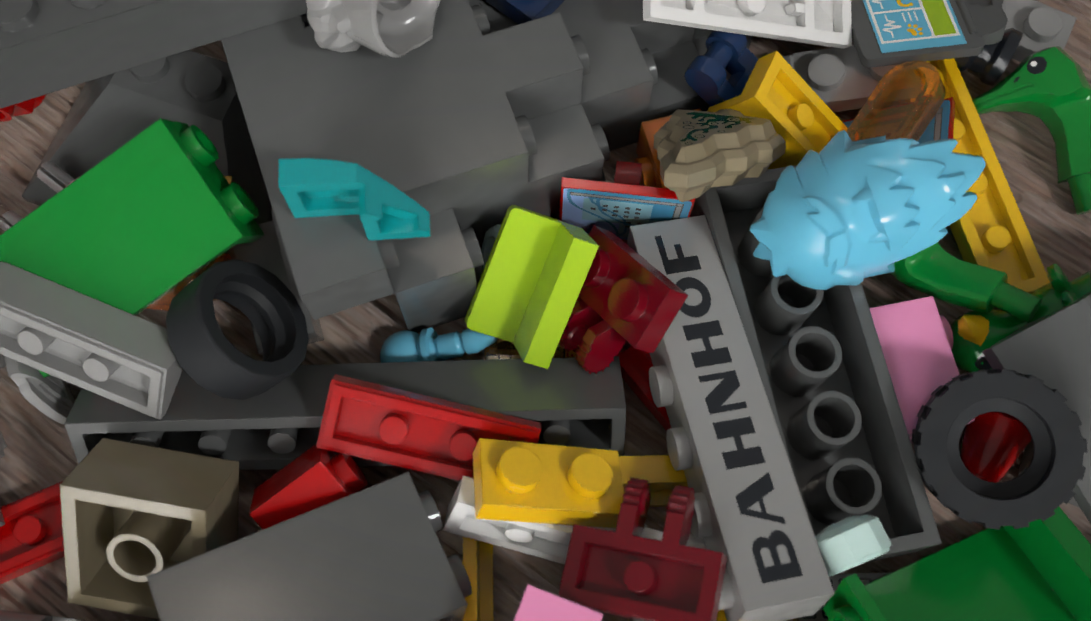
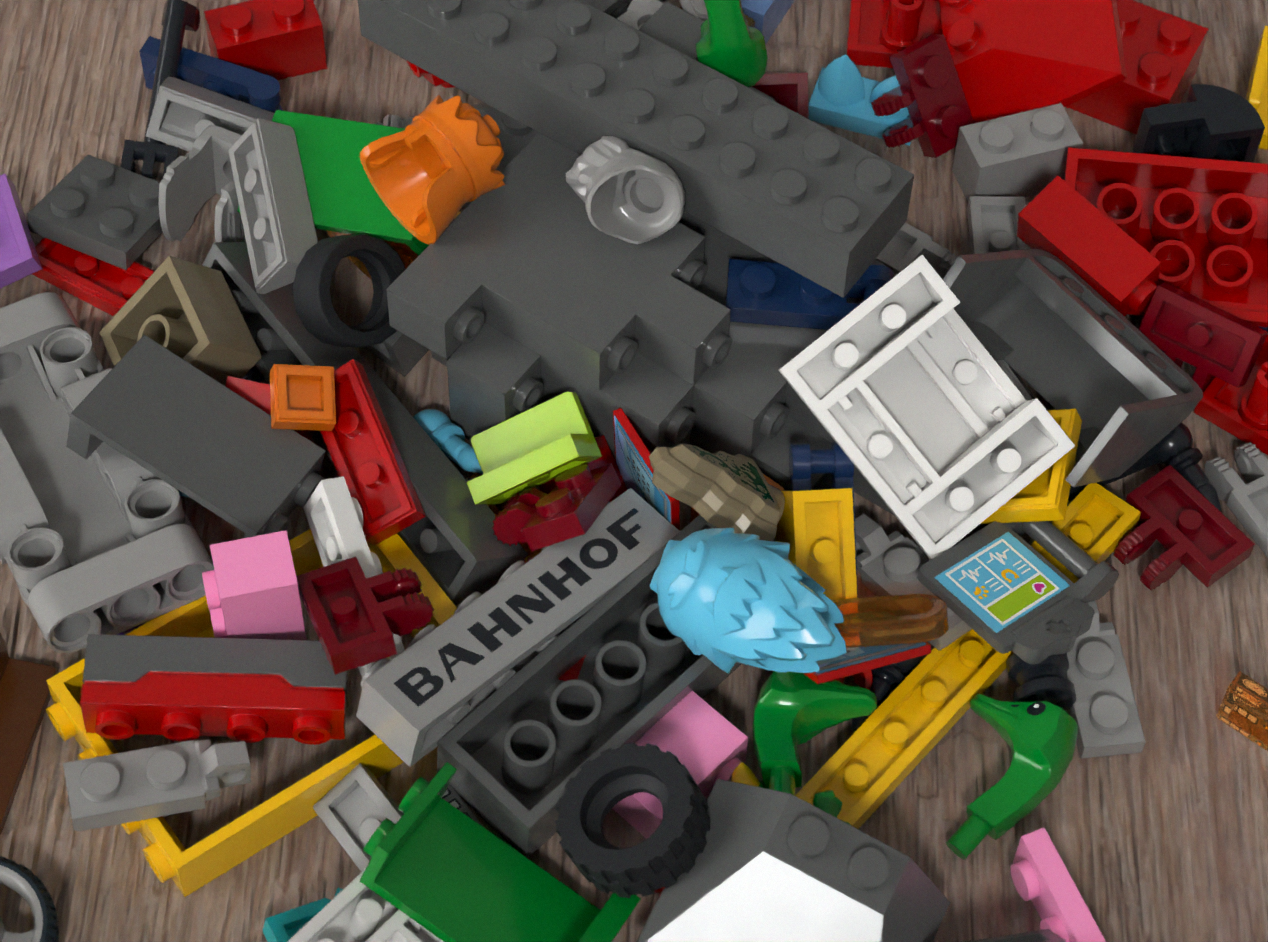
camera: 55 degrees right, 15 degrees down
(201, 152) = (435, 166): none -> orange hat
(341, 458) = (302, 397): none -> orange tile
(347, 188) = (475, 275): teal slope -> none
(546, 483) = (375, 525): yellow plate -> none
(852, 542) = (470, 743): light aqua tile -> none

